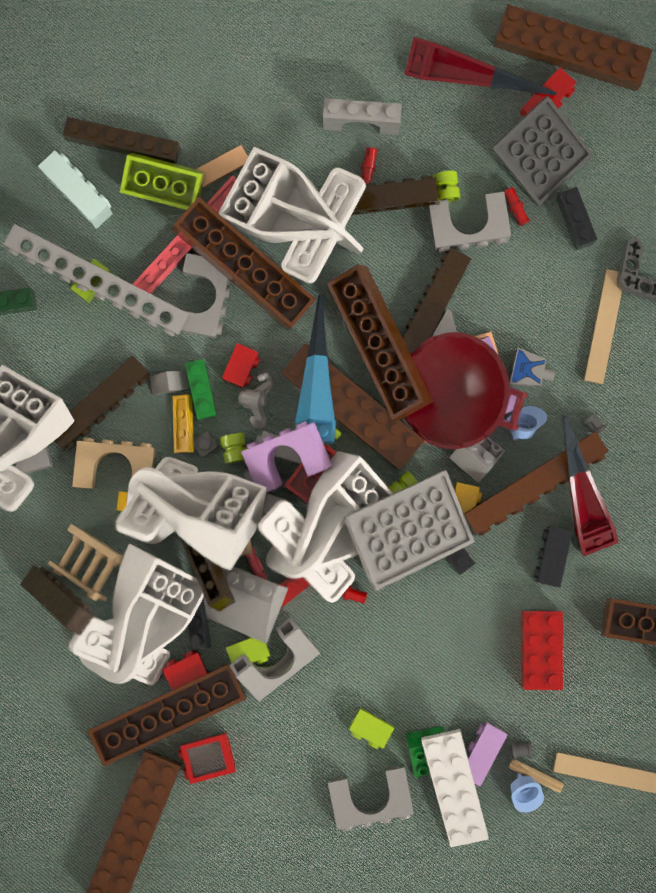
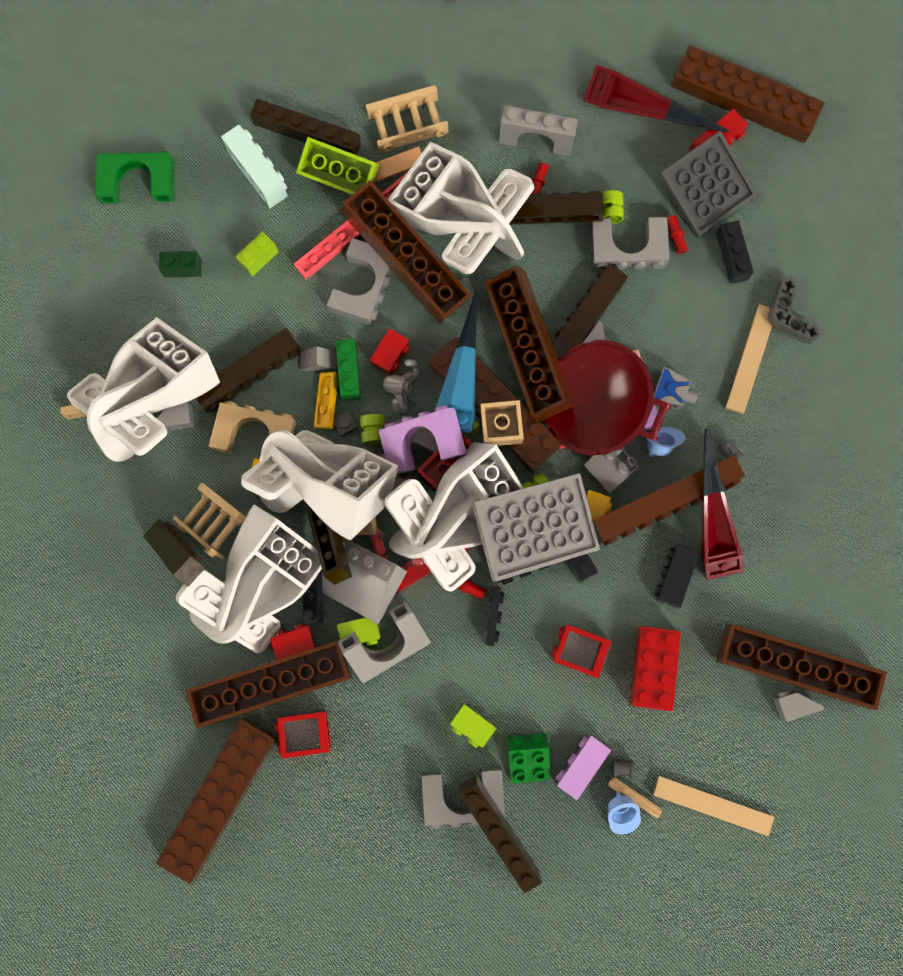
camera: 10 degrees right, 5 degrees down
(19, 236) = (192, 198): light grey brick -> none
(210, 106) = (402, 102): none -> tan fence
(362, 429) = (501, 423): none -> tan brick
(379, 619) = (494, 616): none -> black plate
(410, 827) = (500, 833): none -> dark brown brick
(455, 788) = (551, 798): white plate -> none
(465, 640) = (579, 649): none -> window

